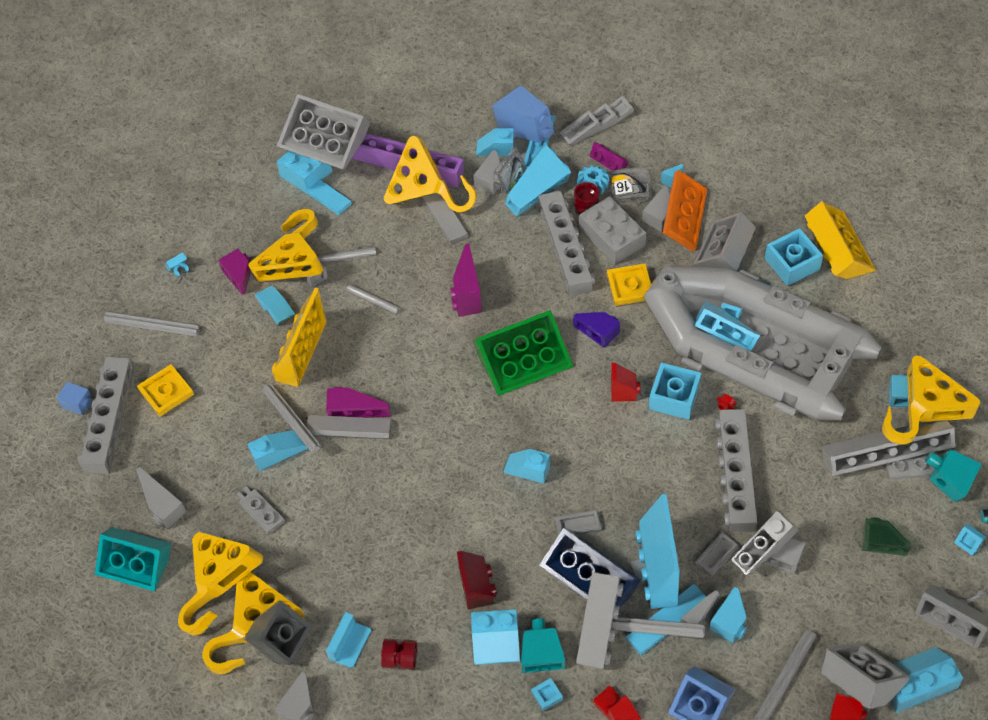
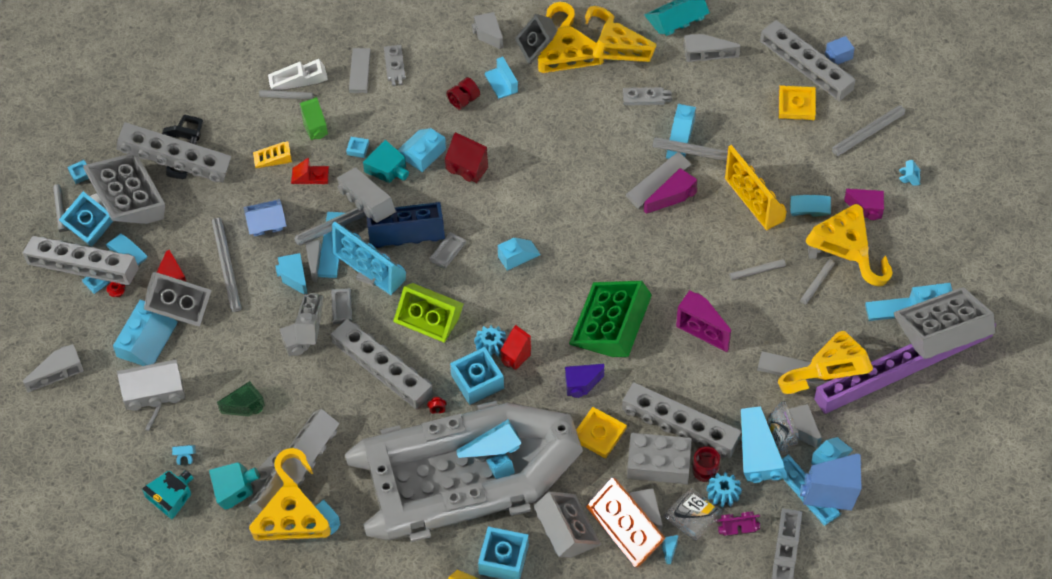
camera: 130 degrees right, 0 degrees up
(632, 413) = (491, 339): none -> medium azure gear
(652, 476) = (427, 312): none -> lime slope

